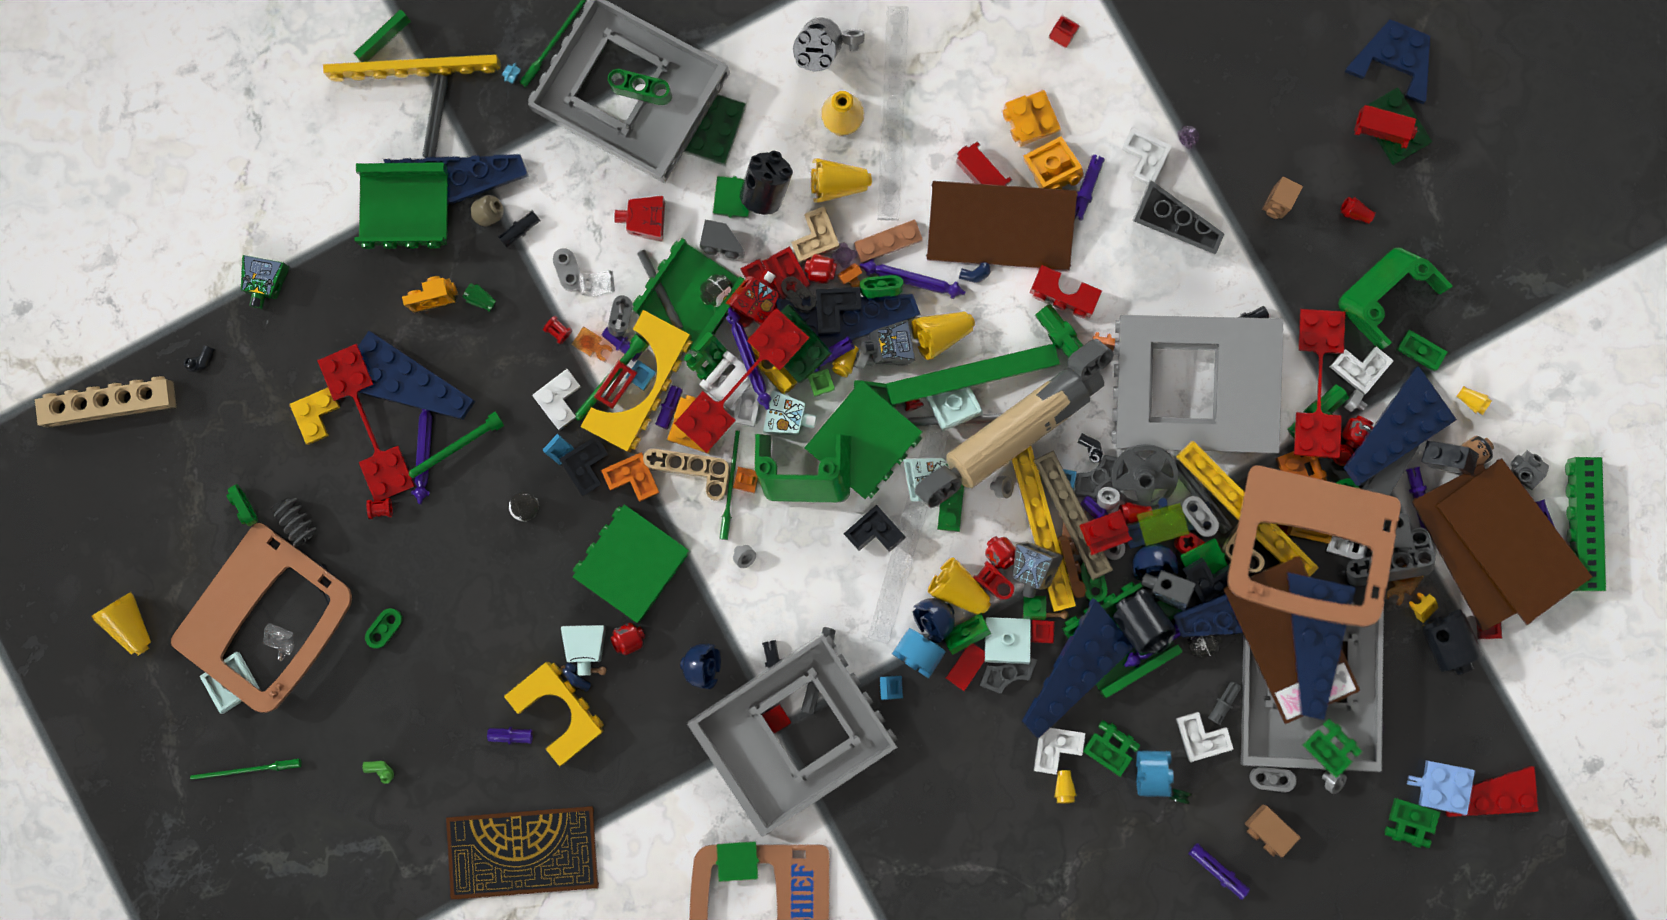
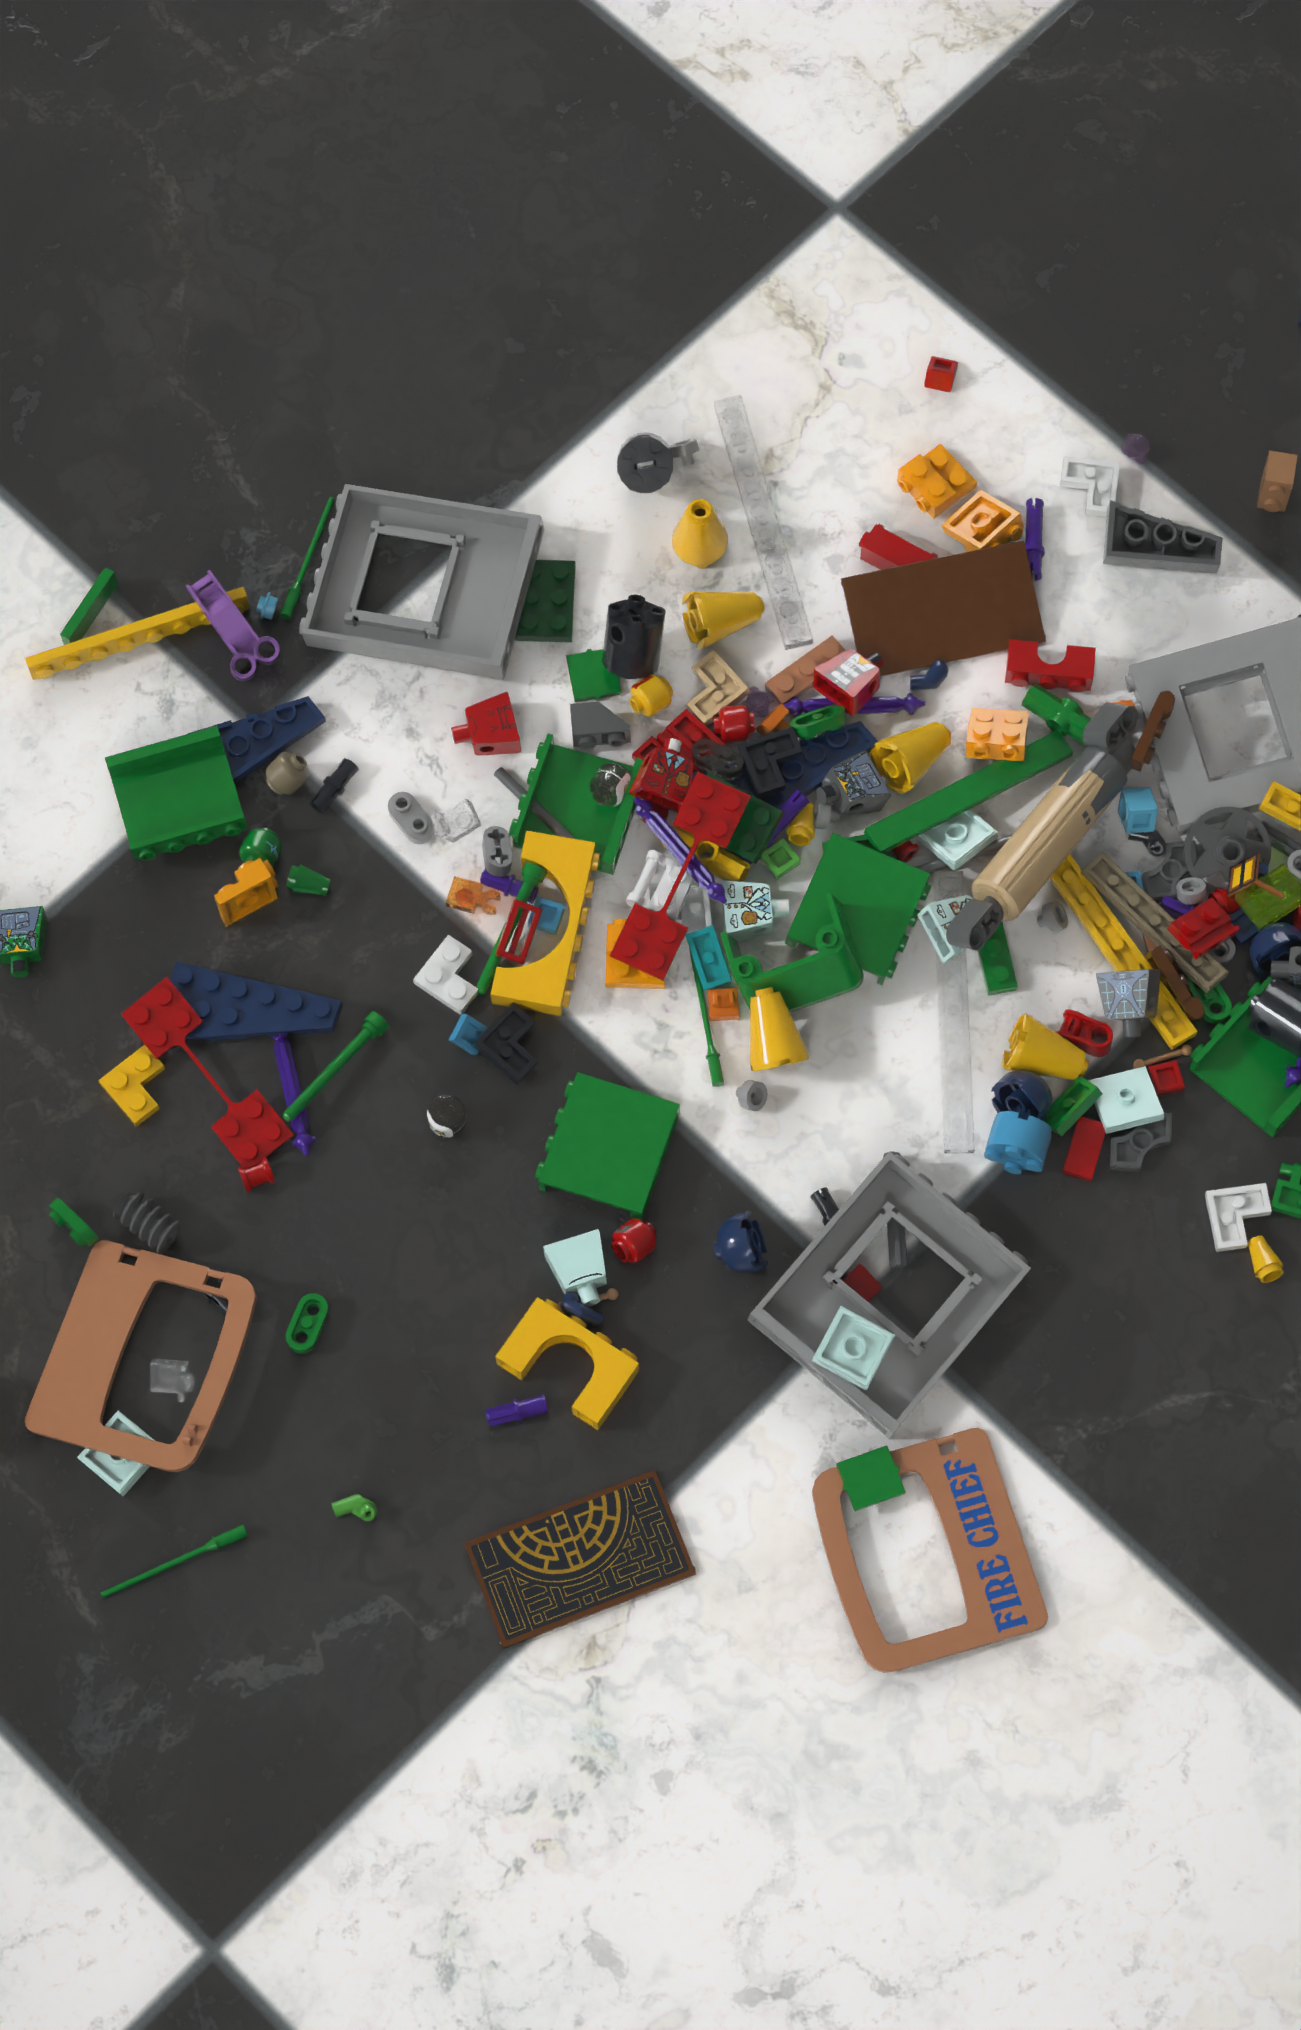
camera: 20 degrees left, 15 degrees down
(435, 116) = (184, 683): dark grey axle -> none
(451, 263) = (261, 844): none -> green head
(478, 84) = (231, 625): none -> medium lavender piece
(557, 330) = (412, 891): red bush -> none
(633, 79) = (428, 561): green beam -> none
(634, 471) = (578, 1034): orange plate -> none
(669, 407) = (595, 944): dark purple axle -> none
(686, 468) = (643, 1012): tan beam -> none
(708, 350) = (627, 856): green plate -> none
(744, 443) = (708, 958): none -> teal plate
(751, 771) = (853, 1348): none -> light aqua plate
(767, 228) = (651, 695): none -> yellow head
(770, 520) = (773, 1032): none -> yellow cone
(872, 525) = (906, 1008): black plate -> none
(891, 687) = (996, 1201): dark azure plate -> none
(914, 260) = (849, 679): none -> red torso
(1000, 552) = (1079, 994): red head -> none
(1008, 335) = (997, 734): none -> light orange plate
(1034, 608) = (1145, 1050): green plate -> none
(1080, 666) = (1230, 1098): dark blue wing -> none
(1090, 425) = (1137, 810): none -> medium azure brick
(1120, 371) = (1153, 729): none -> reddish brown hinge
(1148, 503) = (1245, 875): none -> piece

